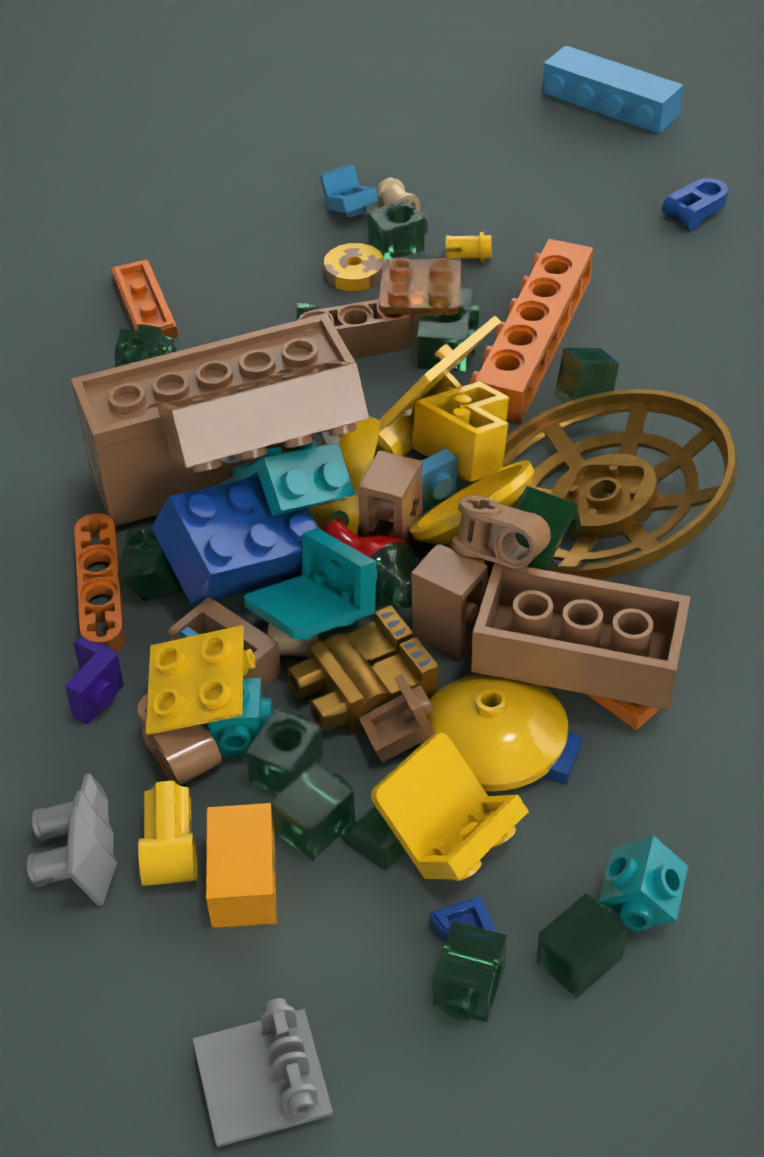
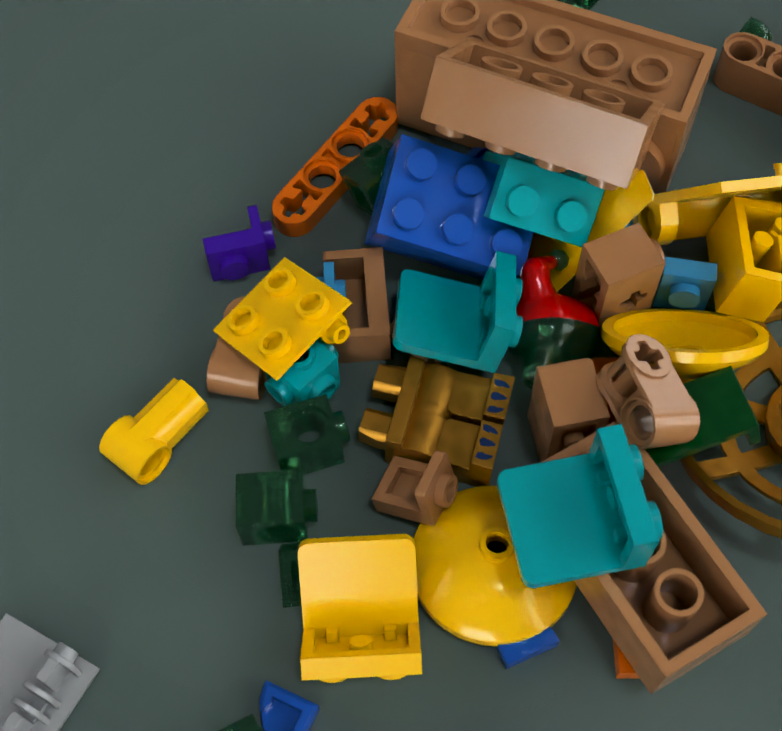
camera: 45 degrees right, 15 degrees up
(89, 849) = (97, 383): light grey connector -> none
(241, 866) = (175, 504): light orange panel -> none
(538, 614) = (580, 513): none -> teal bracket

